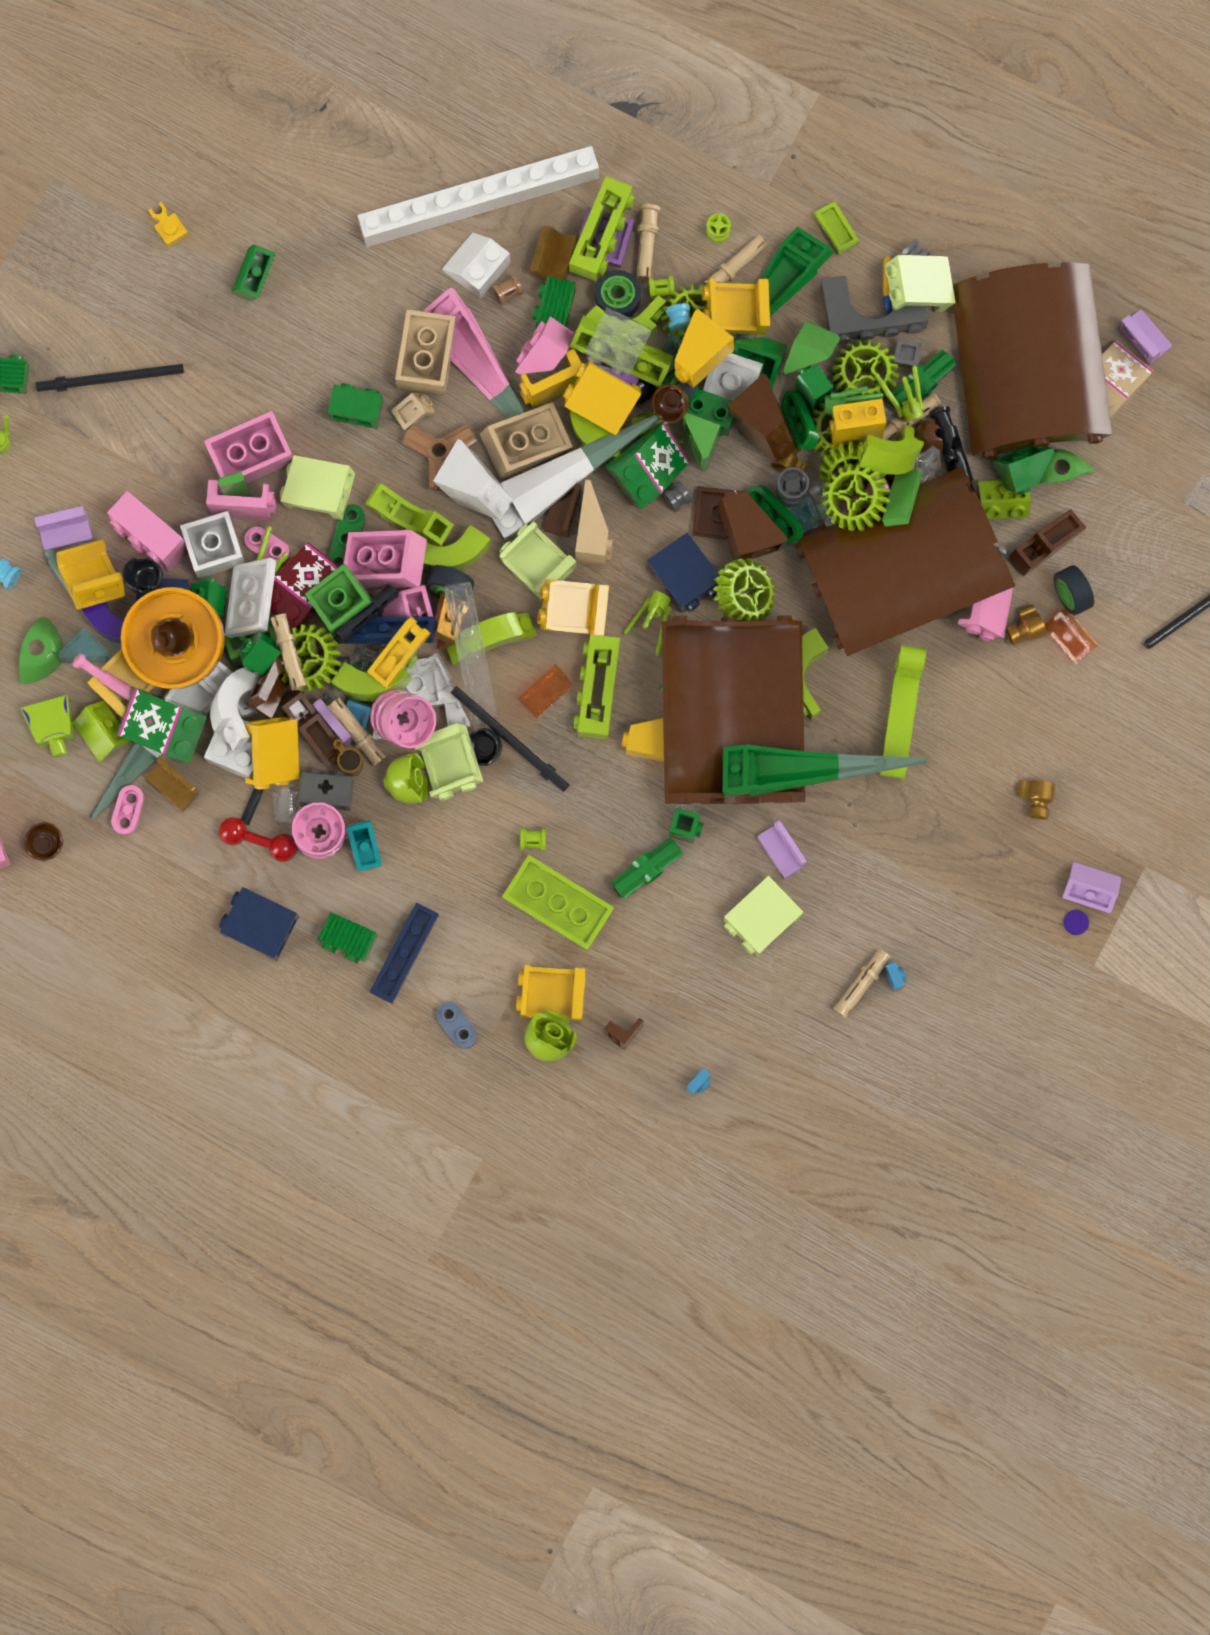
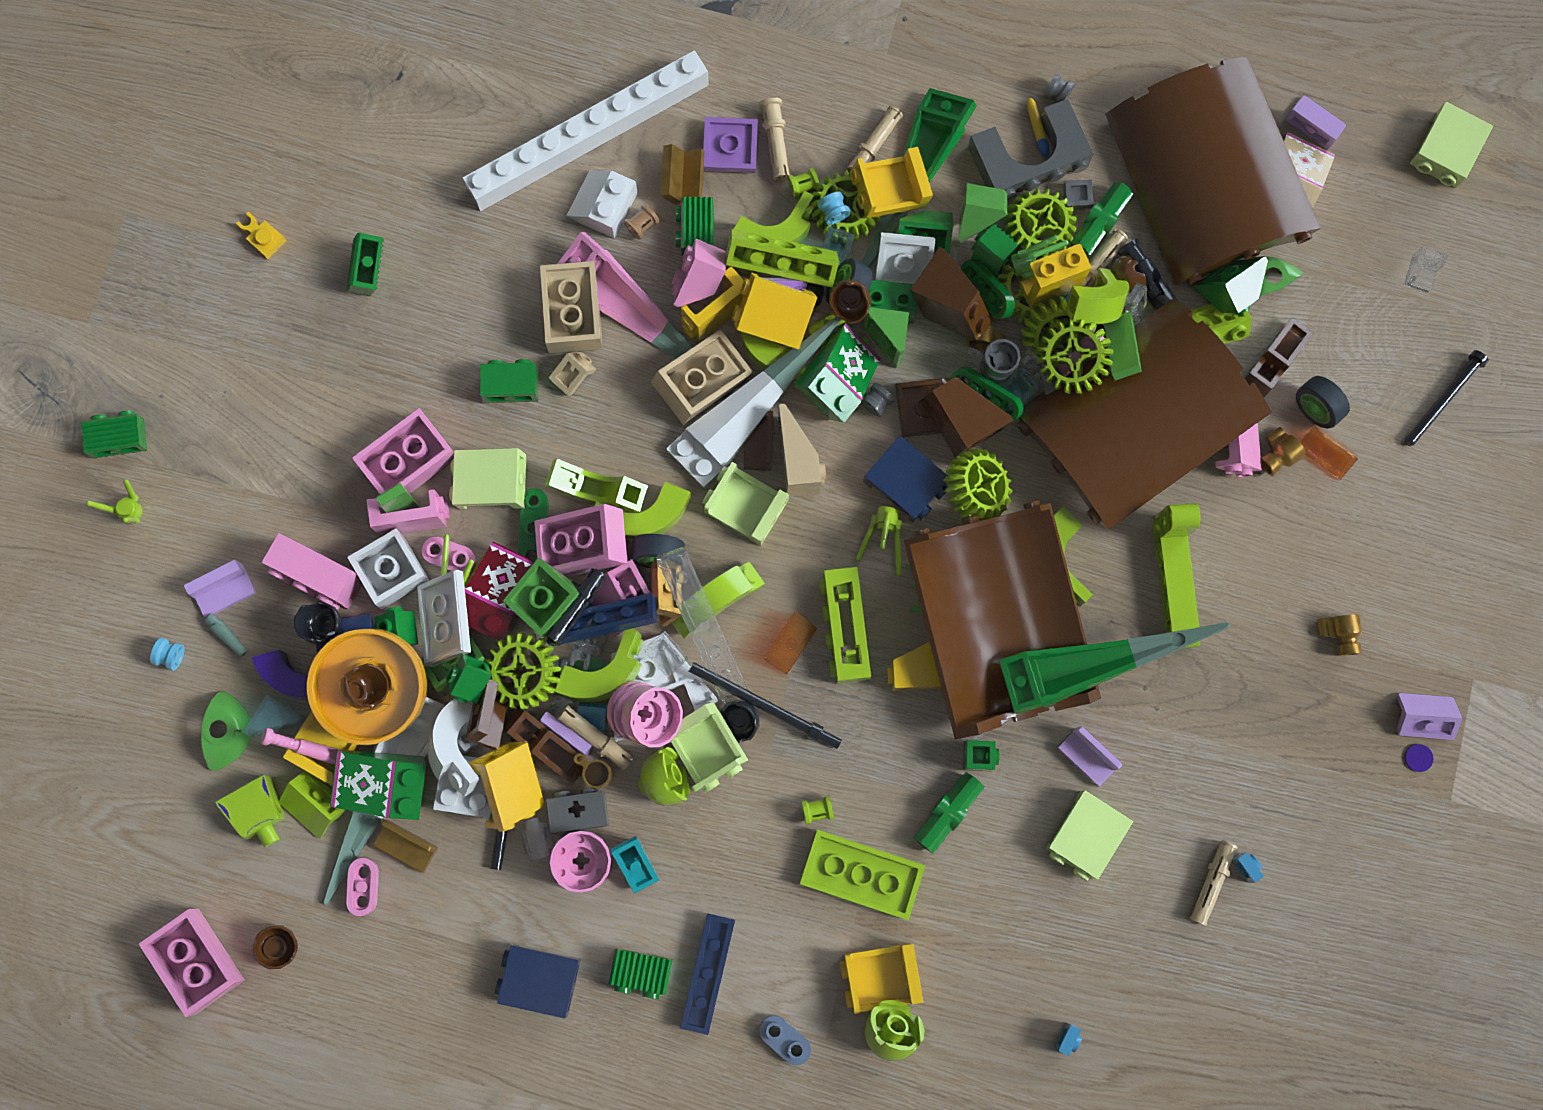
camera: 20 degrees left, 0 degrees up
(62, 383) = (184, 430): black bar -> none
(89, 574) = (259, 634): yellow panel -> none
(234, 831) = (486, 883): red piece -> none
(285, 641) = (494, 660): tan pin -> none
(398, 653) = (622, 643): yellow plate -> none
(426, 444) = (615, 426): medium nougat piece -> none
(472, 483) = (656, 437): white slope -> none
(573, 607) = (798, 545): panel -> none
(588, 265) = (734, 94): lime brick -> none
(617, 342) = (779, 247): clear plate -> none
(618, 281) = (765, 187): wheel -> none
(620, 1037) = (980, 1010): reddish brown panel -> none
(701, 349) = (869, 235): yellow slope -> none
(718, 221) = (849, 102): lime wheel -> none
(836, 228) = (969, 81): lime tile -> none
(912, 407) = (1103, 248): lime plant -> none
(920, 282) = (1074, 115): yellowish green panel -> none

